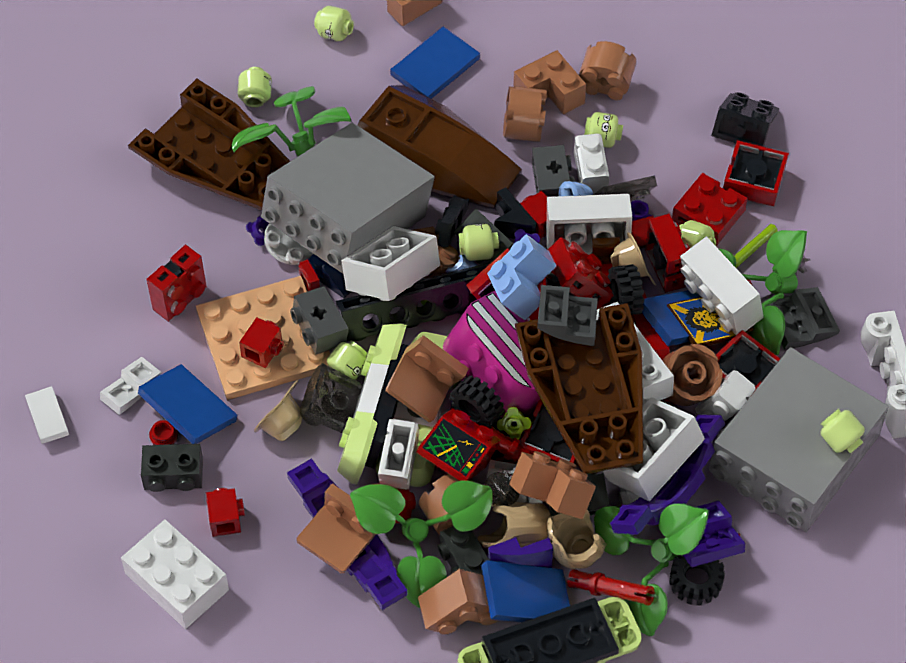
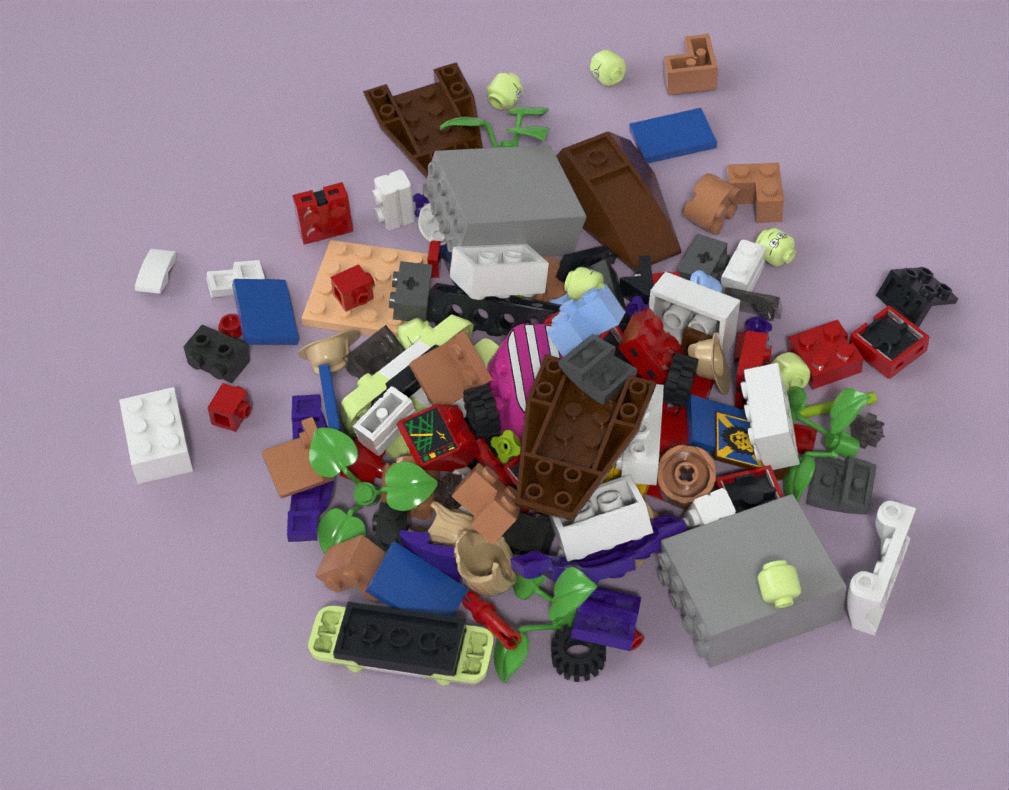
camera: 35 degrees right, 5 degrees down
(235, 239) = (393, 200): none -> white brick
(327, 461) = (329, 397): none -> blue tile
(607, 69) = (814, 198): nougat brick -> none

